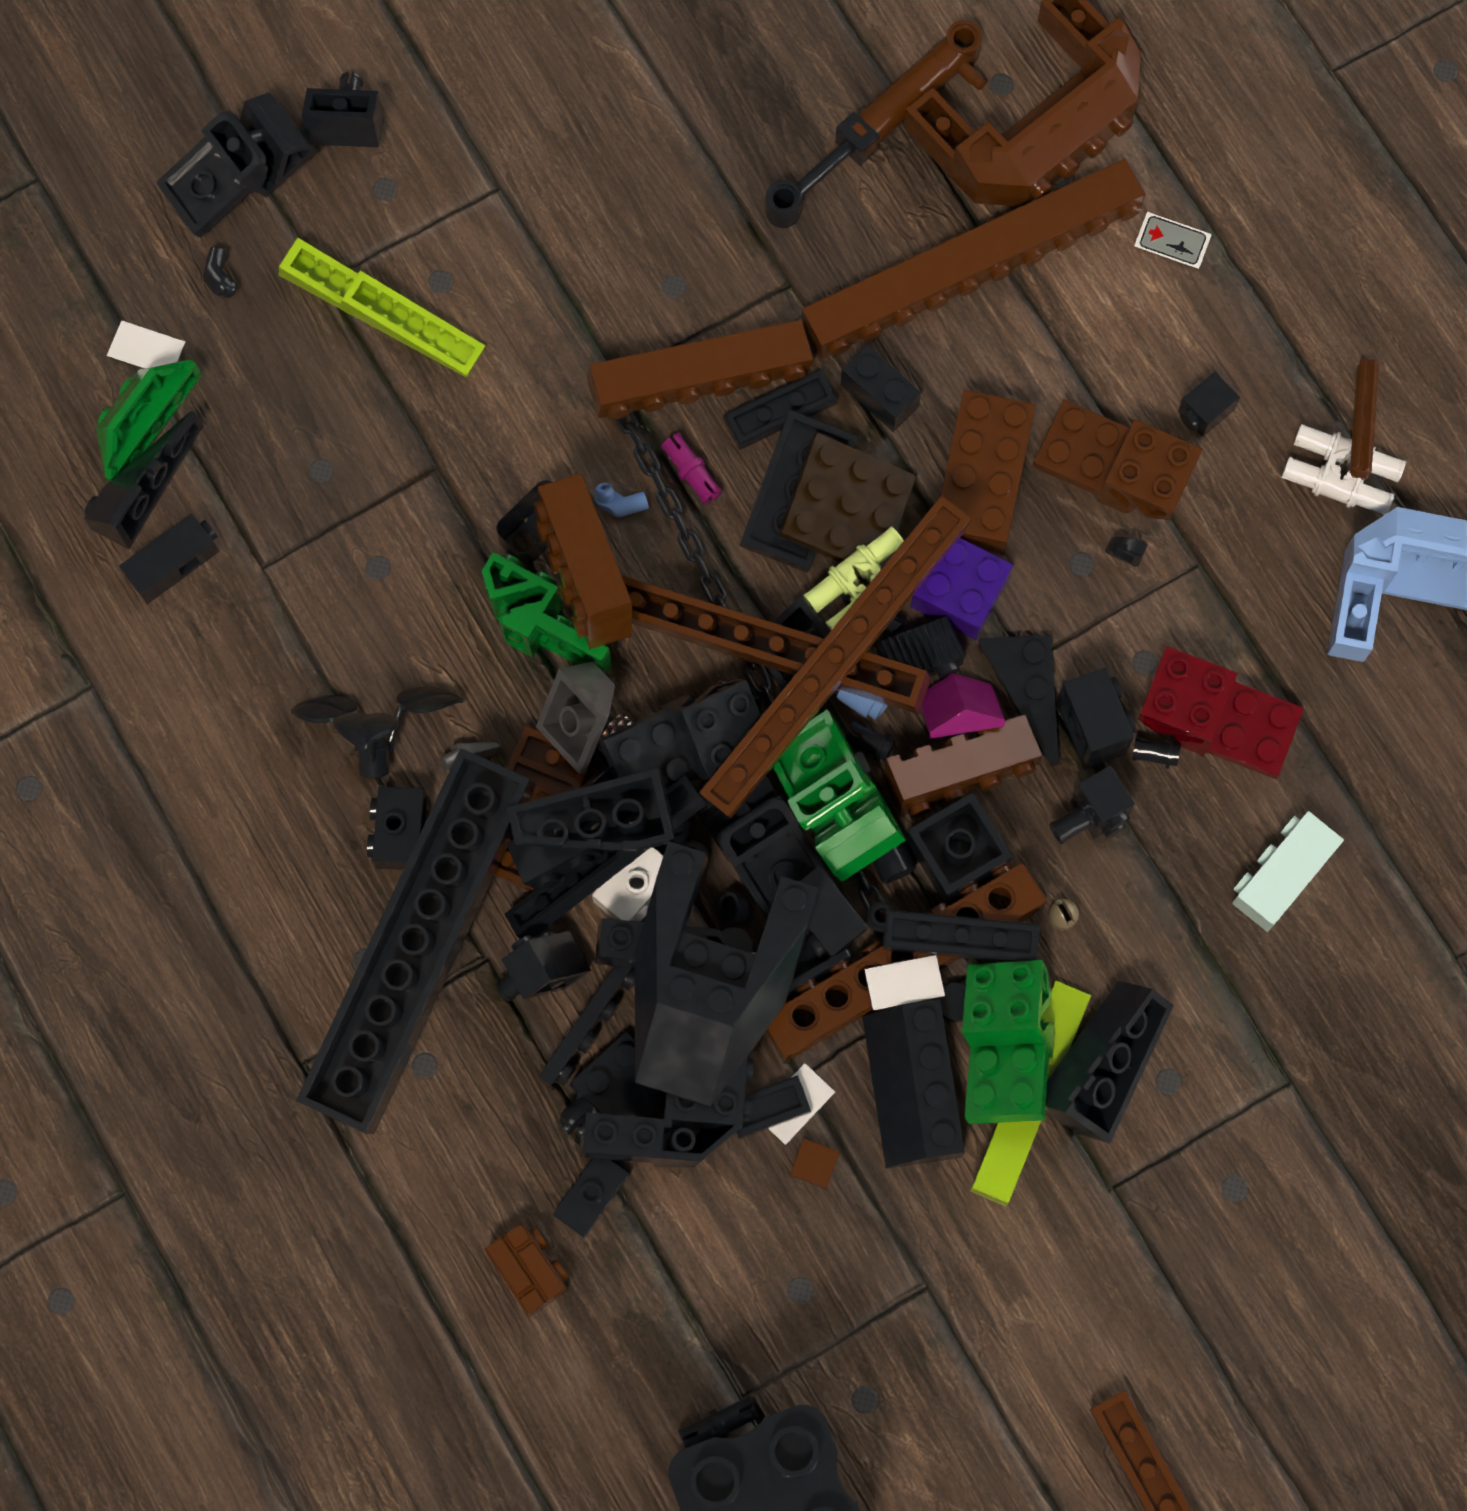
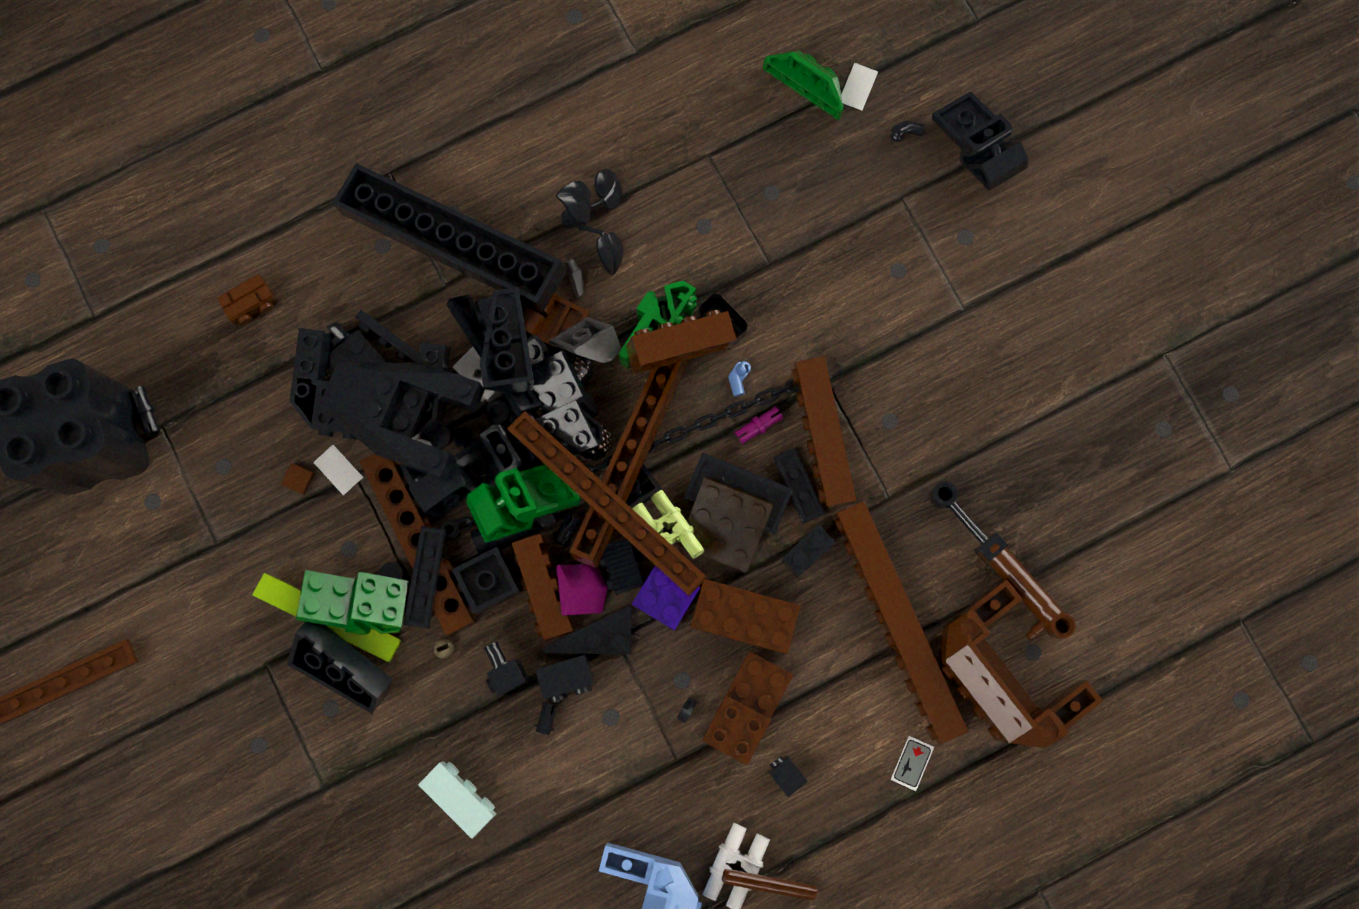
camera: 95 degrees right, 5 degrees up
(133, 494) = (753, 73): black wedge -> none
(170, 557) = (713, 97): black brick -> none
(343, 114) = (1013, 208): black brick -> none
(380, 307) = (879, 231): lime slope -> none
(398, 823) = (531, 230): black brick -> none
(542, 965) = (429, 315): black brick -> none
(591, 1195) = (284, 337): black plate -> none
(775, 1106) = (336, 455): black tile -> none
(904, 982) = (400, 539): white sticker -> none
(913, 1084) = (338, 543): black slope -> none
(1217, 715) = (565, 763): dark red piece -> none

